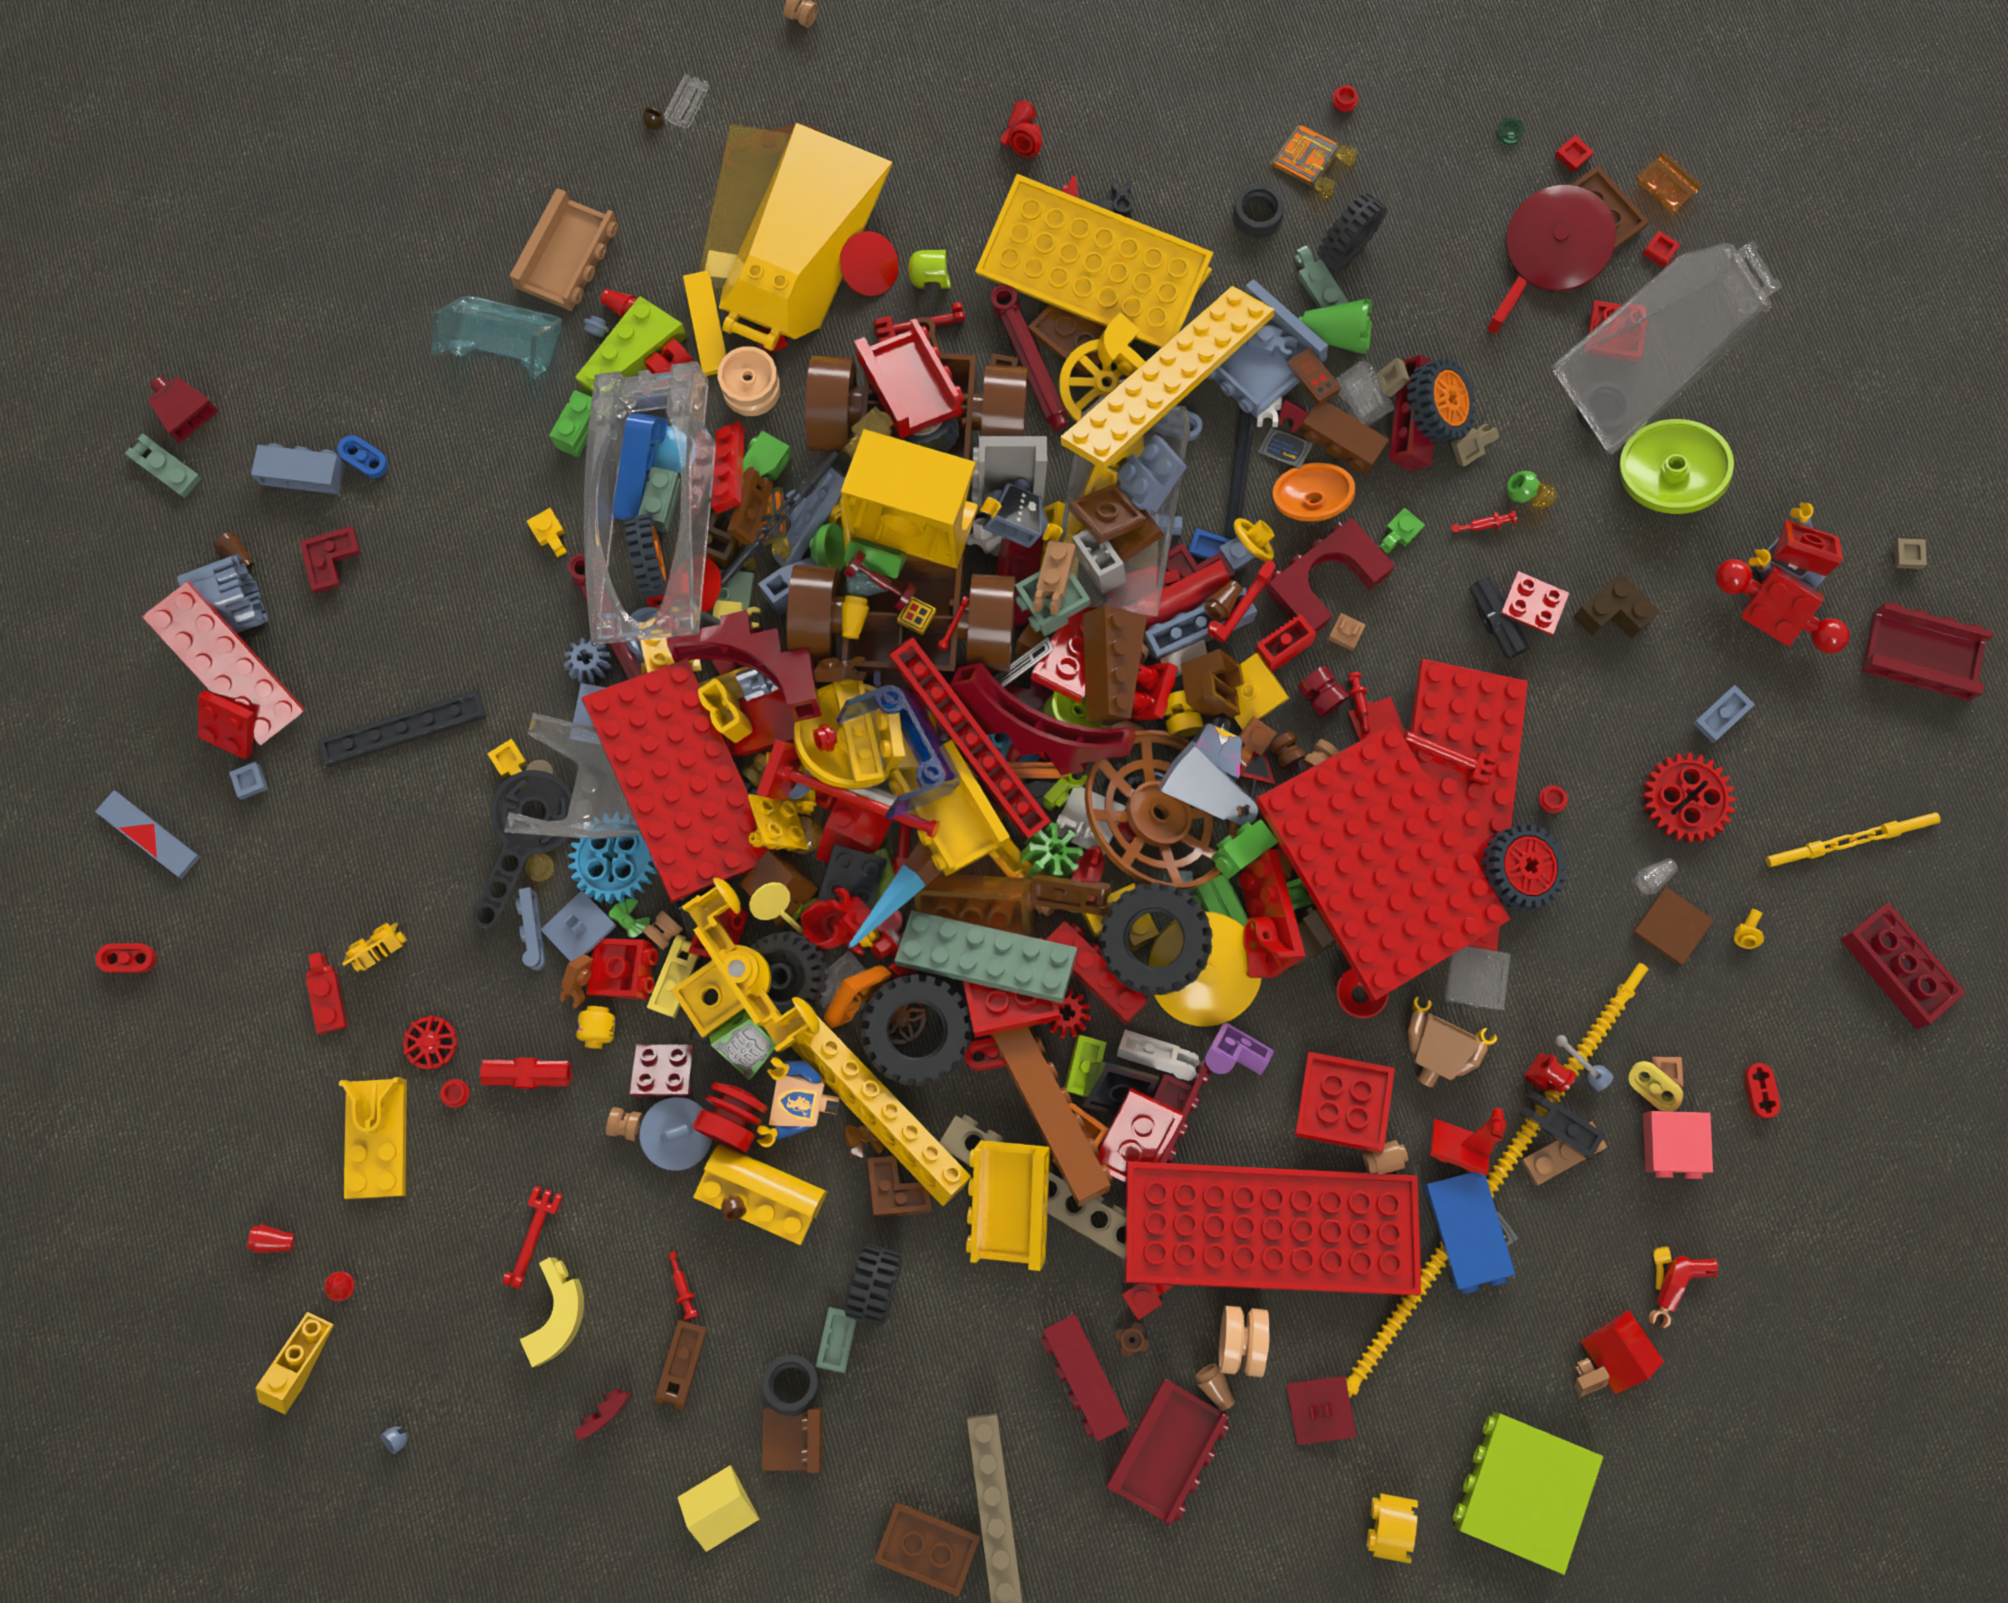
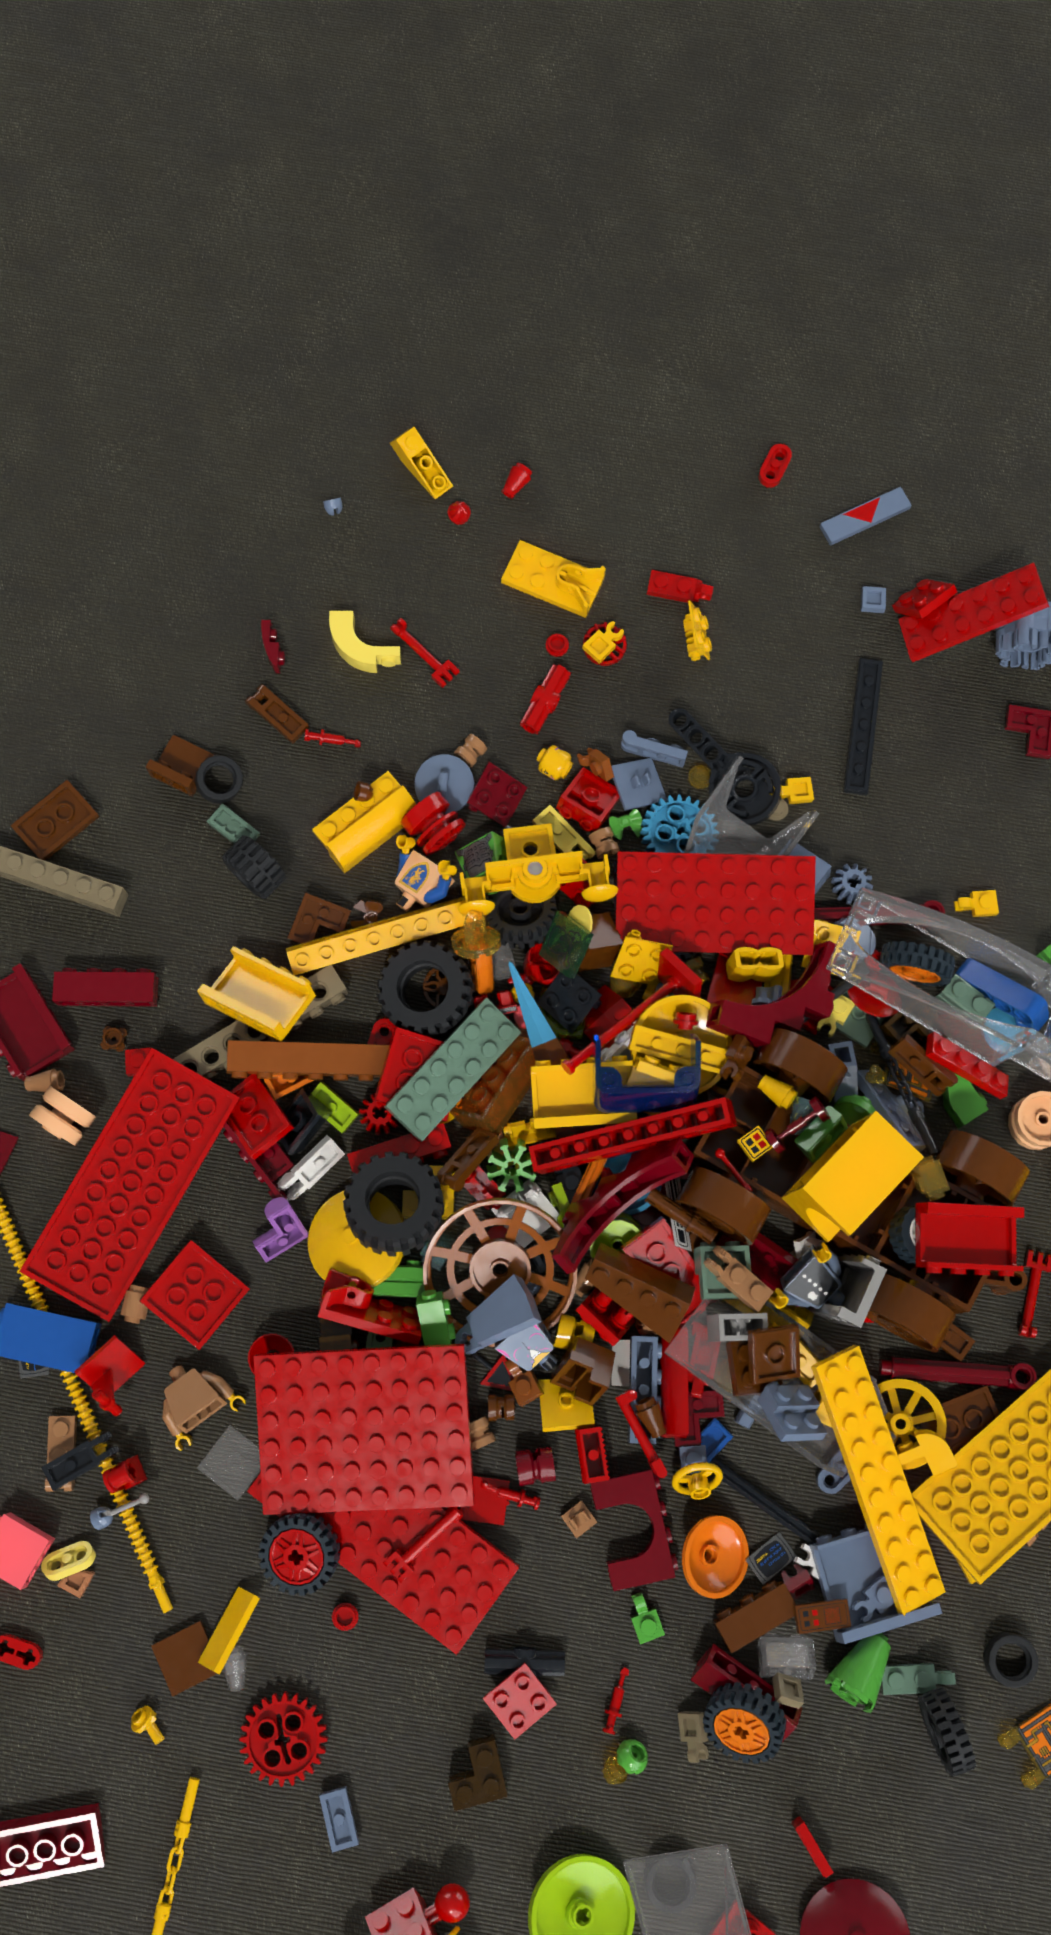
camera: 110 degrees right, 0 degrees up
(434, 1042) = (602, 644): none -> yellow plate
(717, 1509) = (165, 693): light yellow slope -> none
(798, 905) = (566, 944): none -> clear green tile
(839, 999) = (475, 937): none -> clear yellow tile
(852, 910) = (541, 984): red plate -> none
(1021, 651) = (685, 1218): none -> reddish brown pin
(1628, 897) = (228, 1630): none -> yellow tile

